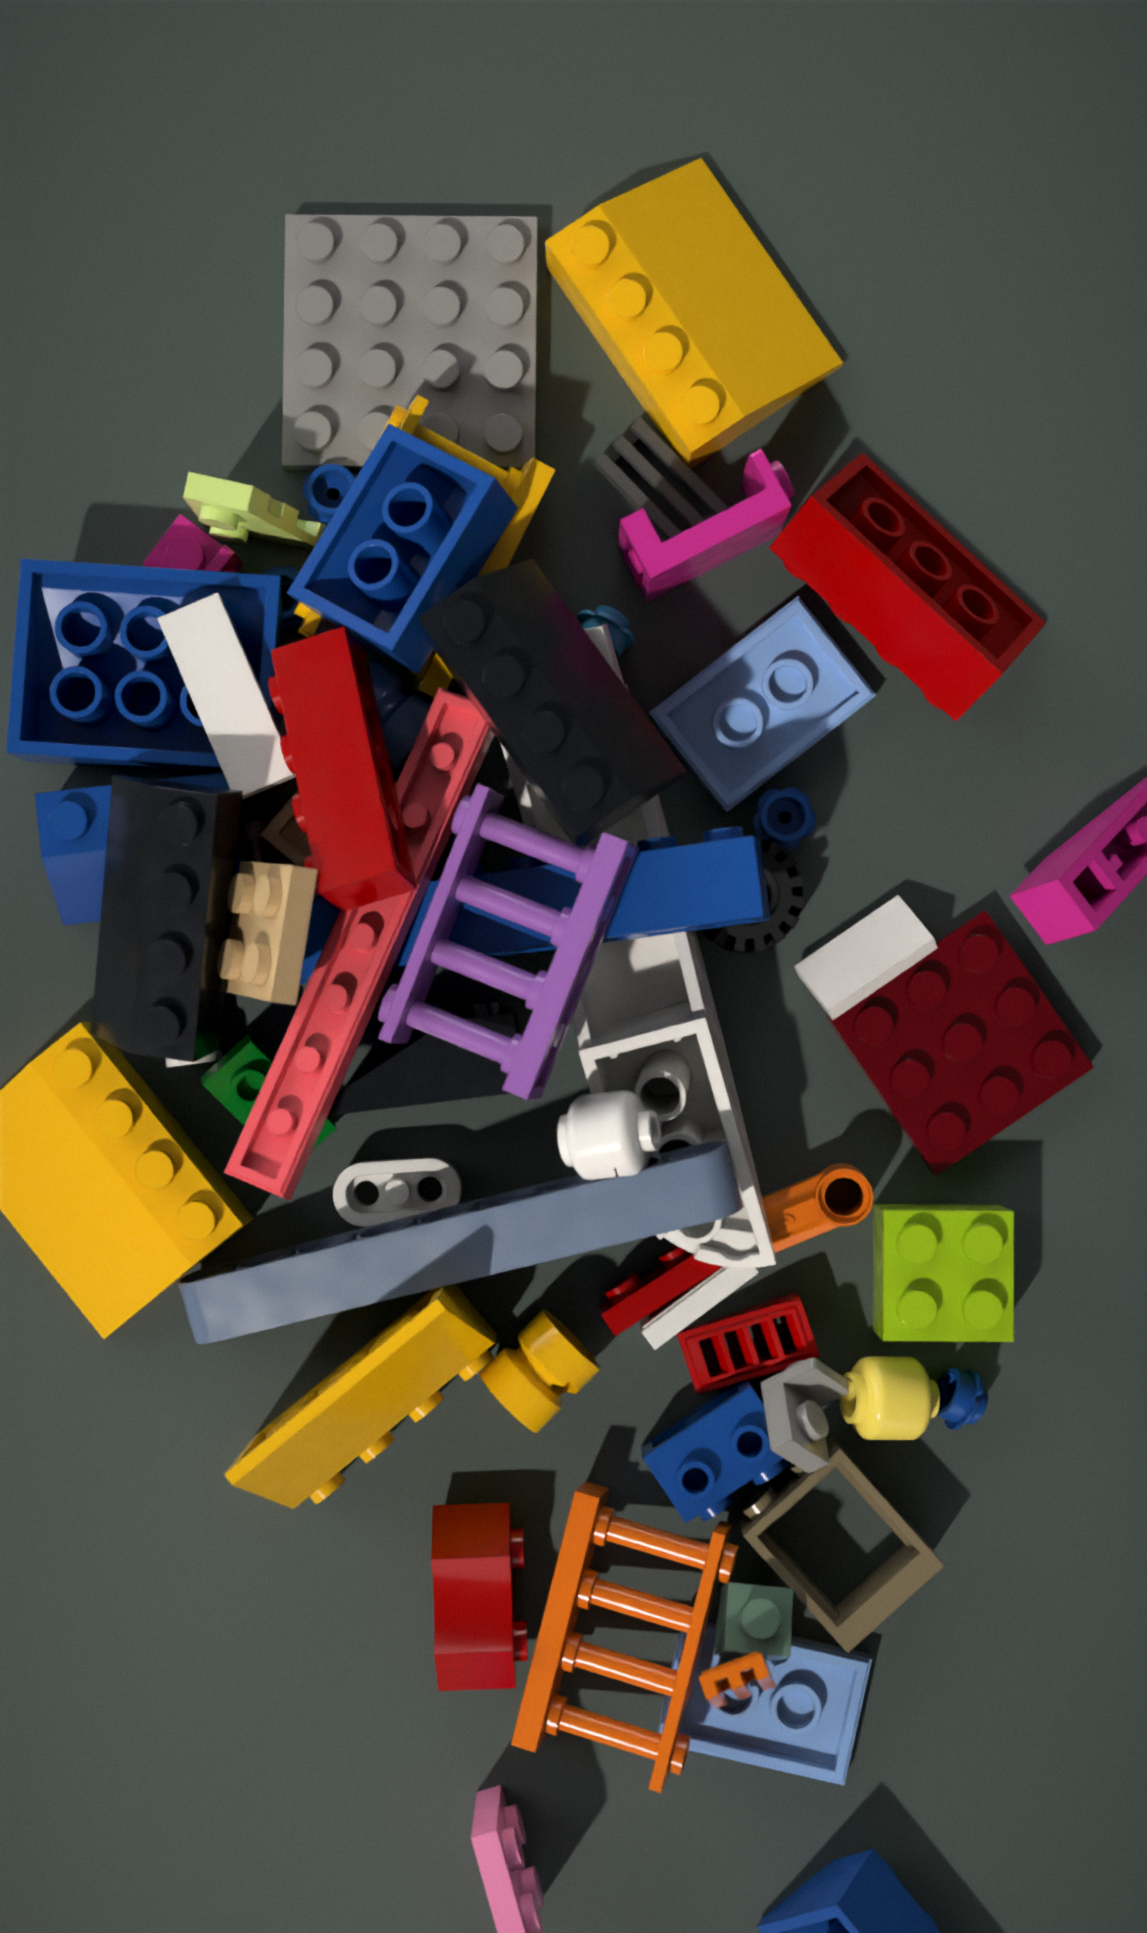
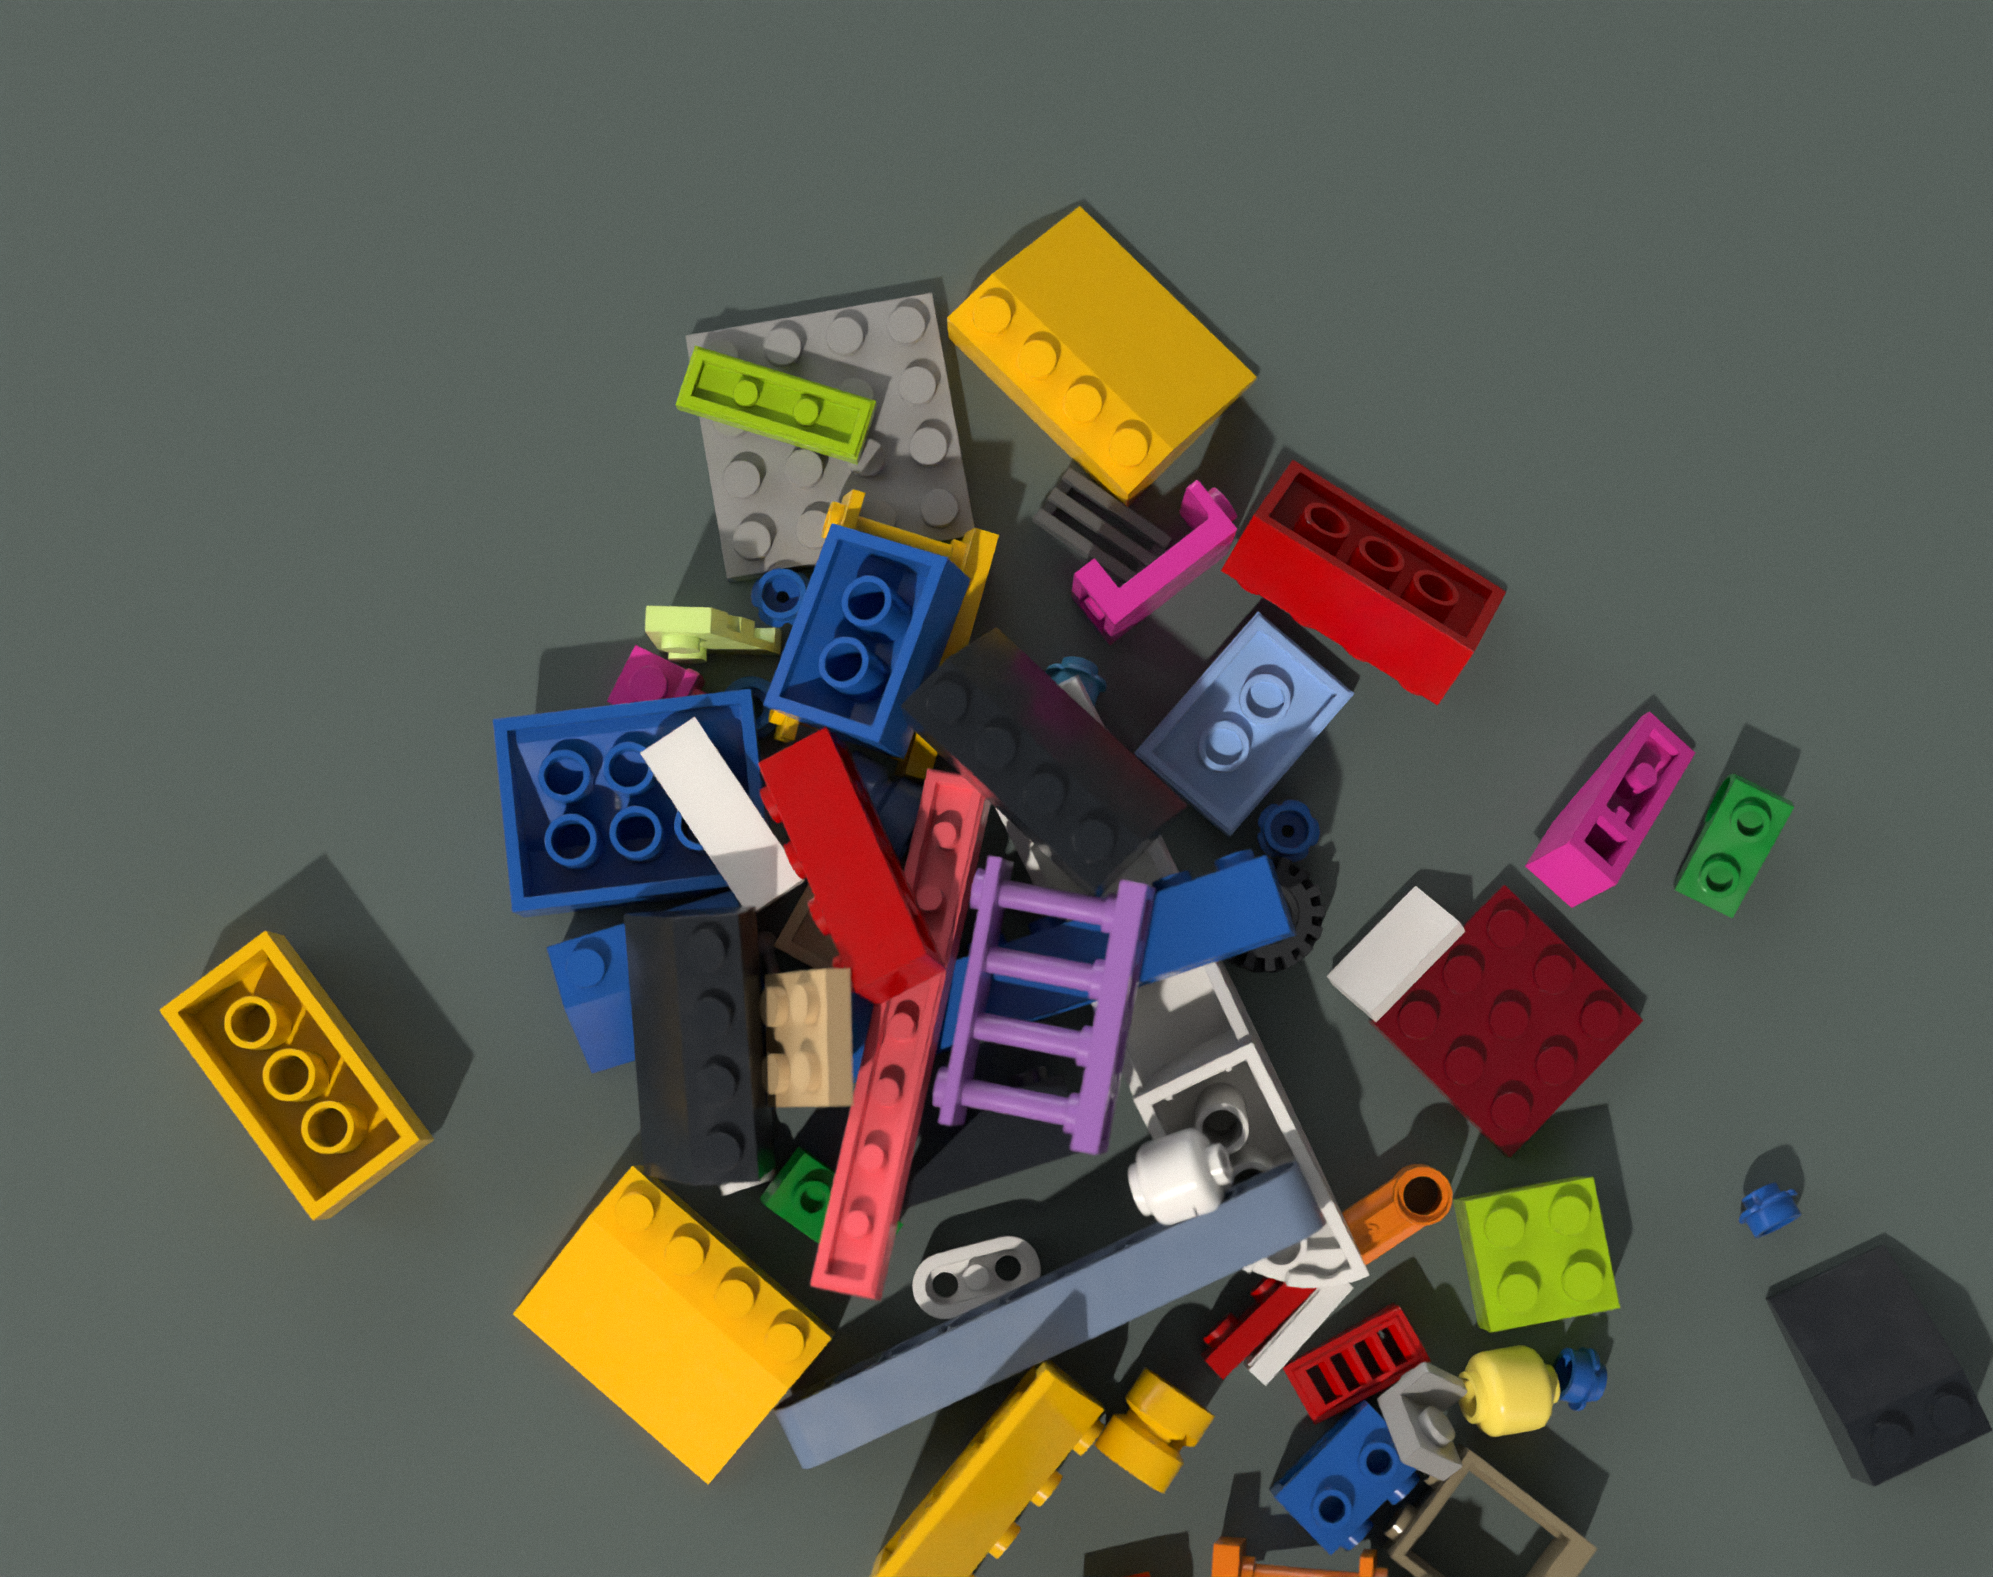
camera: 15 degrees left, 5 degrees down
(360, 299) = (776, 405): none -> lime tile

